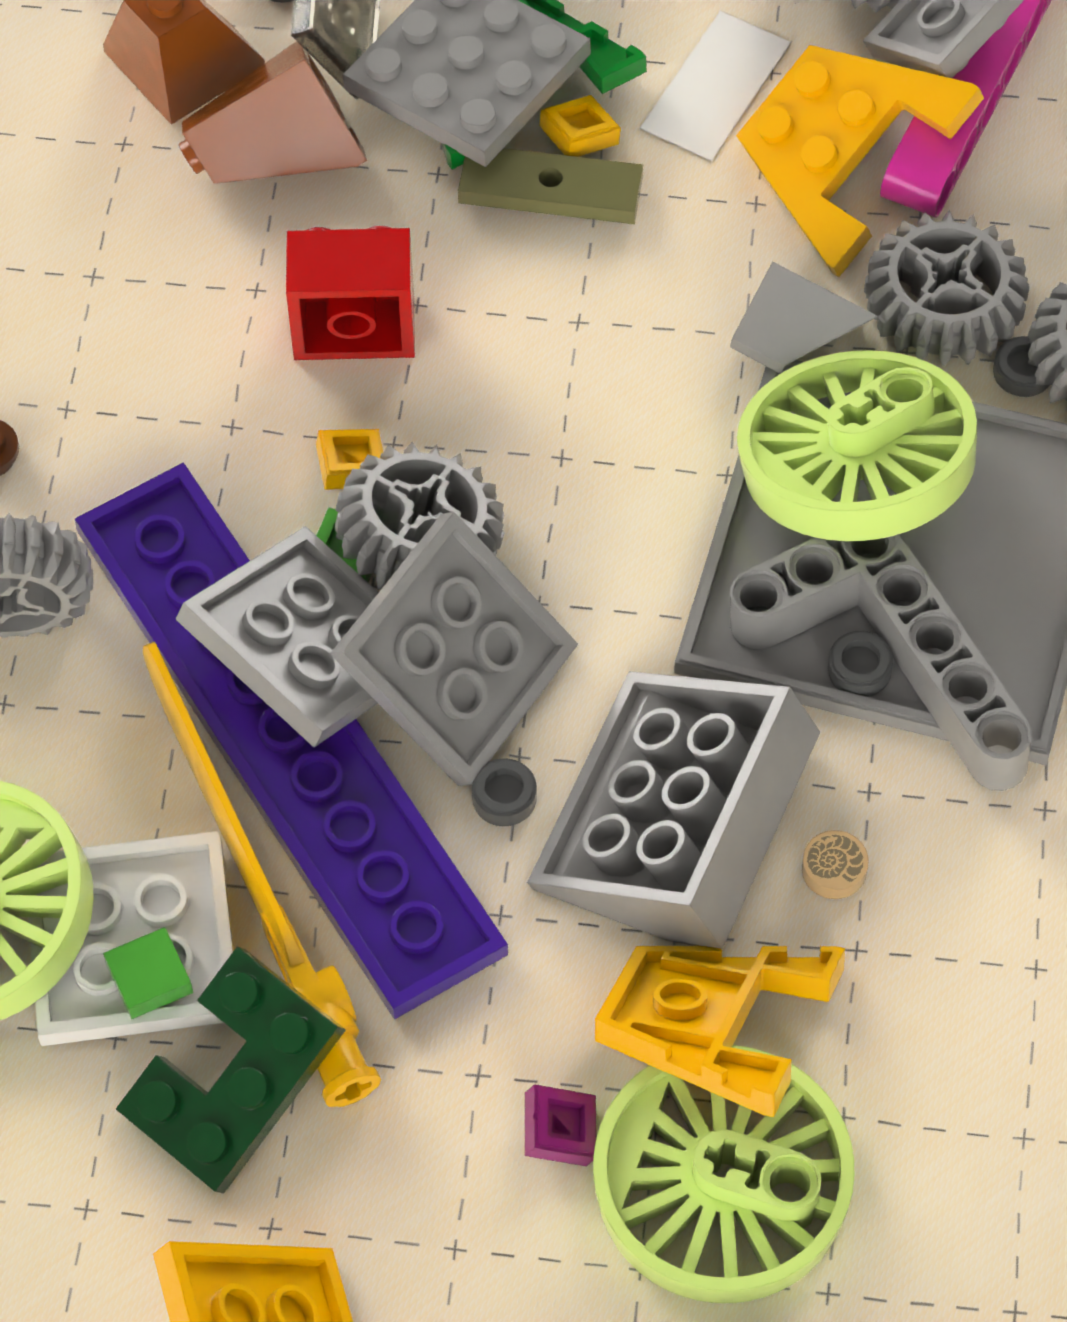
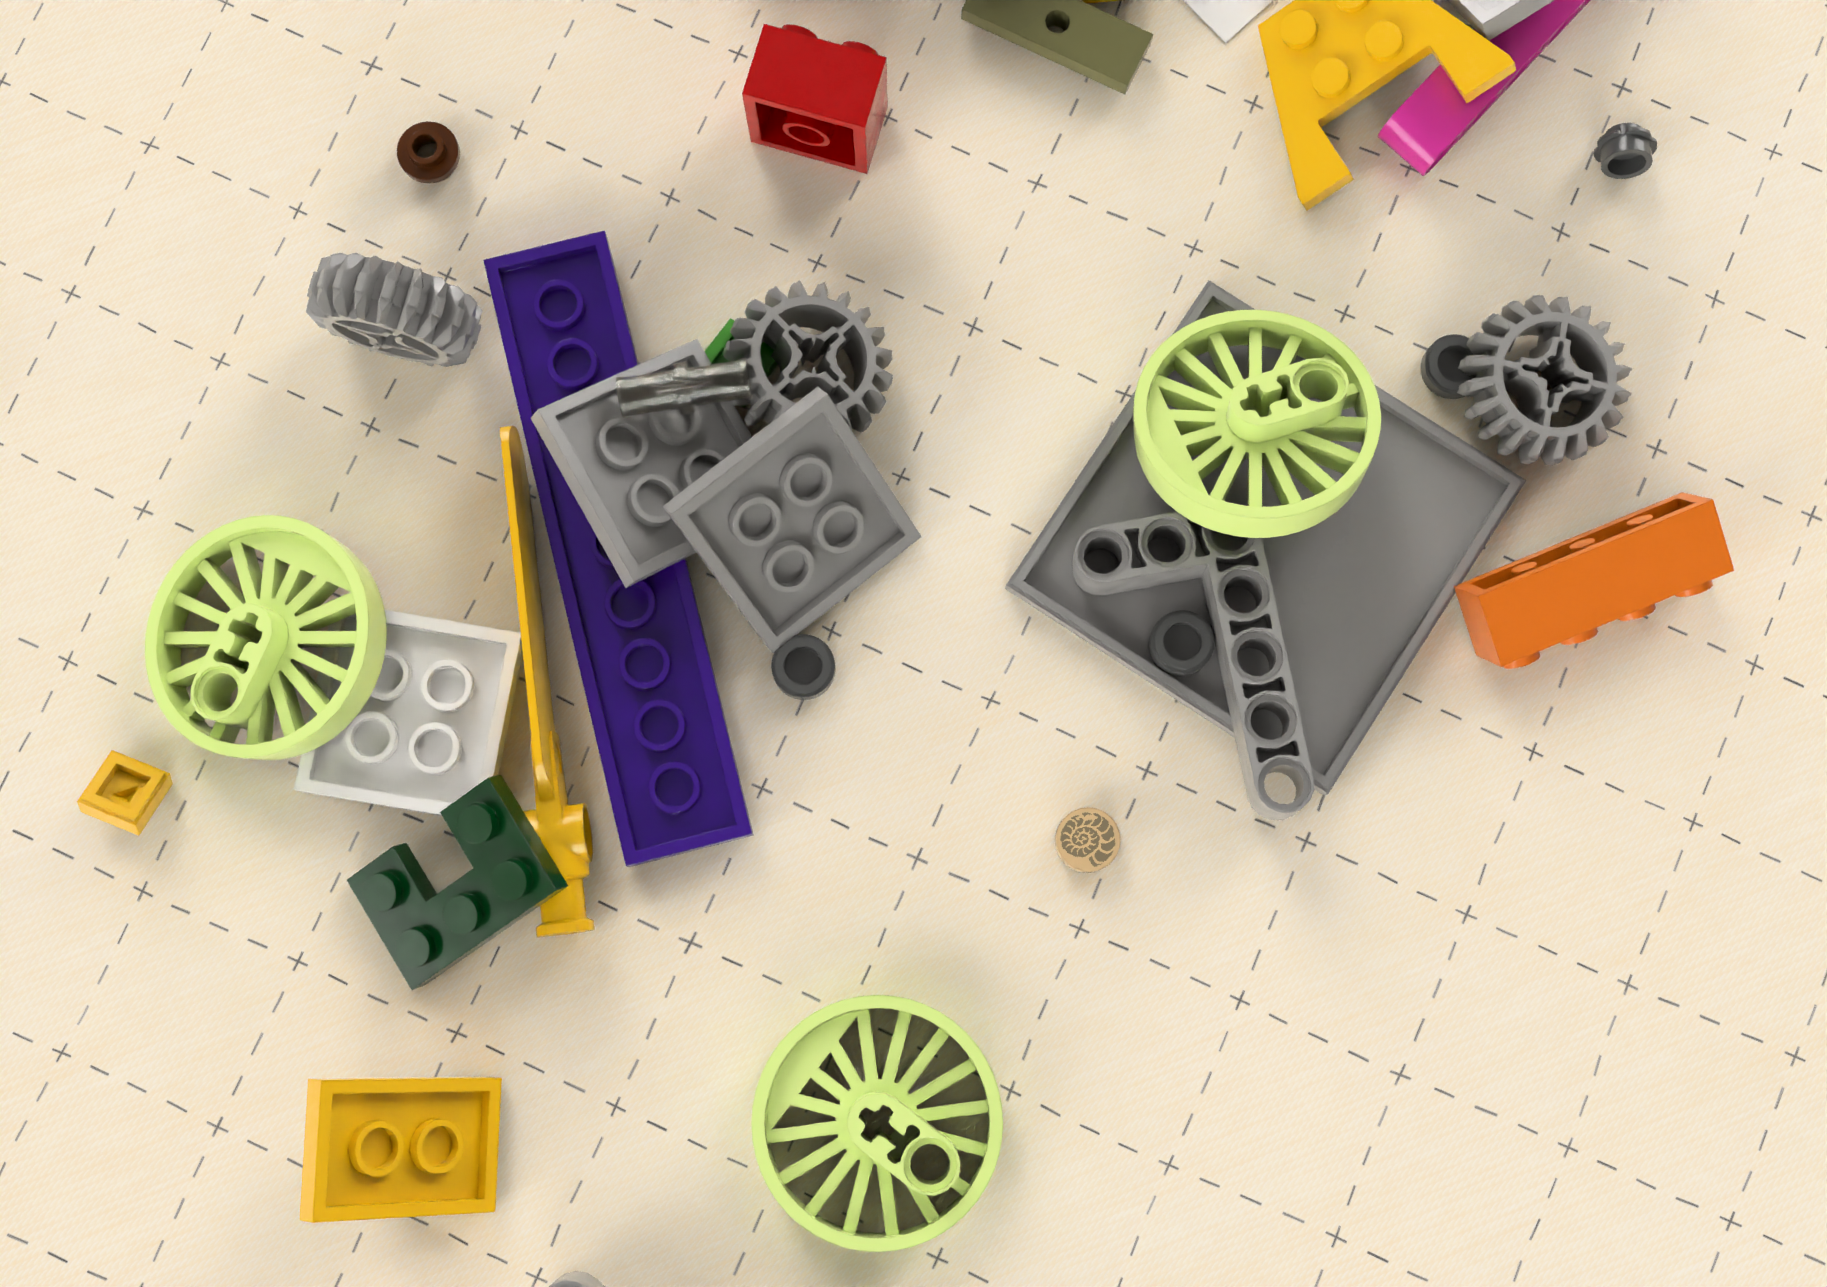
camera: 15 degrees right, 20 degrees up
(148, 973) = (408, 762): bright green tile -> none
(315, 551) = (640, 394): none -> clear smoke pin
(344, 450) = (764, 265): yellow tile -> none
(560, 1125) = (744, 1025): magenta tile -> none
(678, 804) = (958, 736): light grey slope -> none
(689, 1003) = (892, 955): yellow wing -> none
(793, 319) = (1246, 256): light grey slope -> none
(952, 307) = (1383, 221): light grey gear -> none

